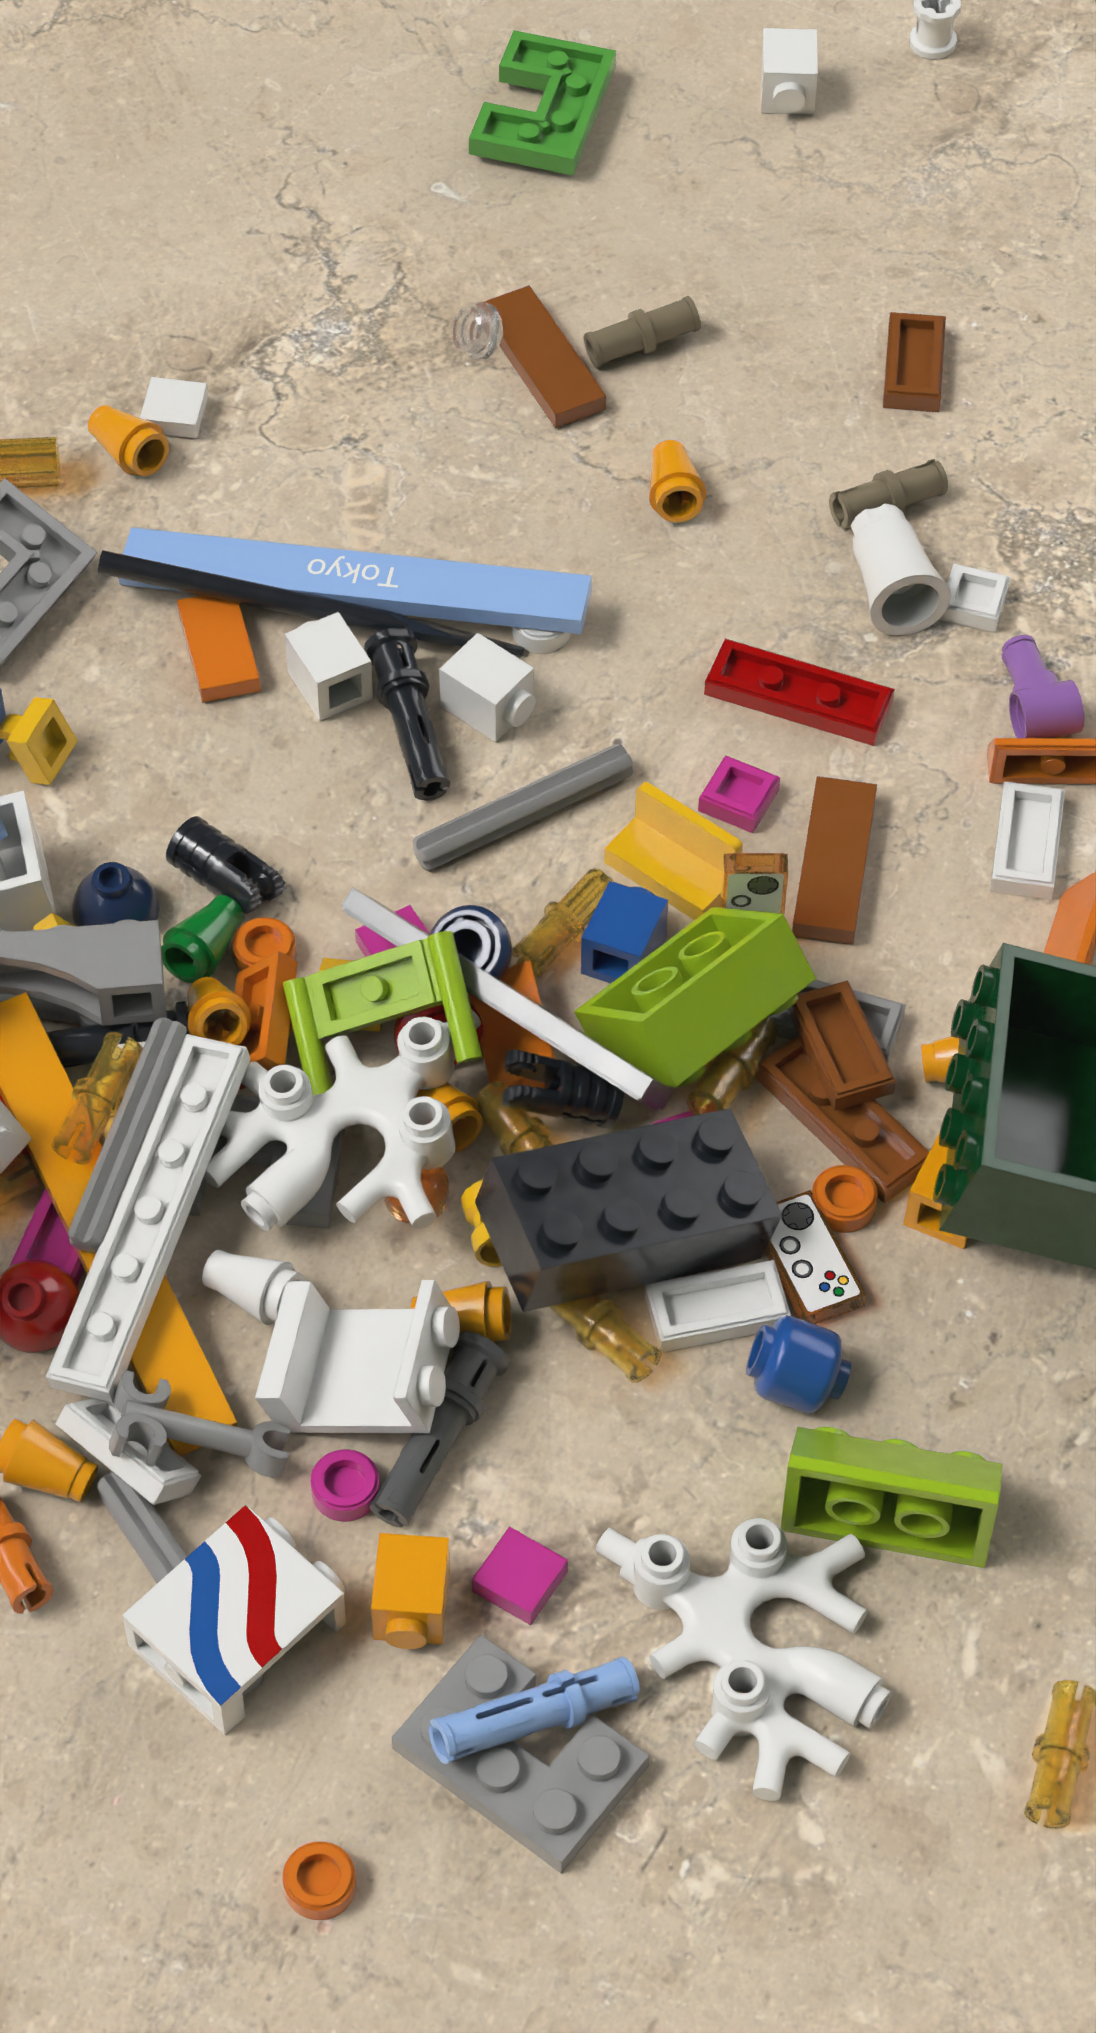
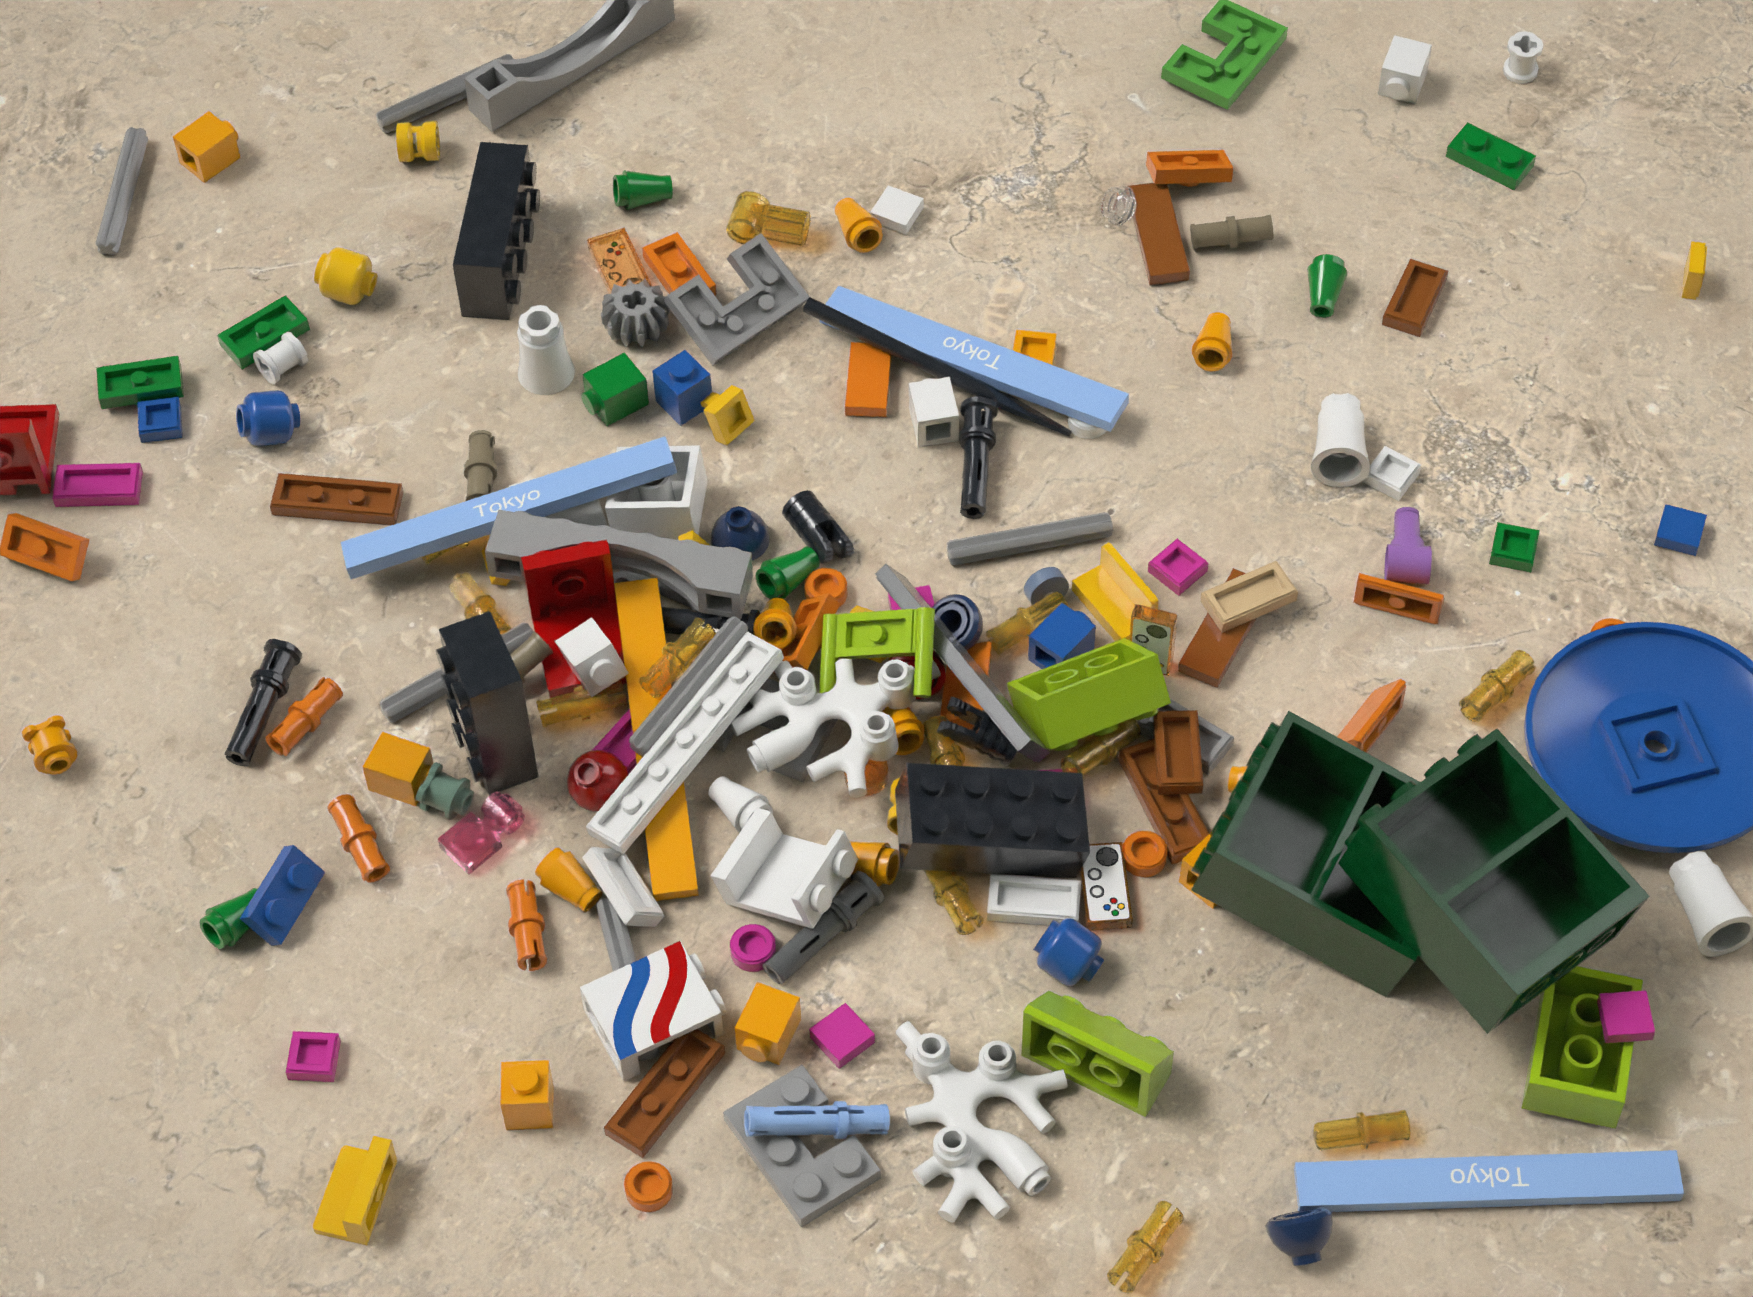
camera: 20 degrees right, 0 degrees up
(96, 1798) = (527, 1095): none -> light orange brick
(150, 1424) = (640, 871): light grey bar -> none
(291, 1734) = (664, 1091): none -> dark orange tile
(433, 541) = (1036, 345): none -> light orange tile
(487, 687) = (1033, 452): white brick -> none
(554, 259) = (1189, 167): none -> orange plate
(571, 862) = (1044, 583): none -> sand blue tile
(793, 370) = (1325, 281): none -> green cone
(799, 692) = (1245, 508): red tile -> none
(855, 808) = (1249, 596): none -> tan tile
(889, 488) = (1360, 385): dark tan pin -> none
(940, 158) = (1490, 156): none -> green plate
(1027, 840) = (1362, 648): white tile -> none

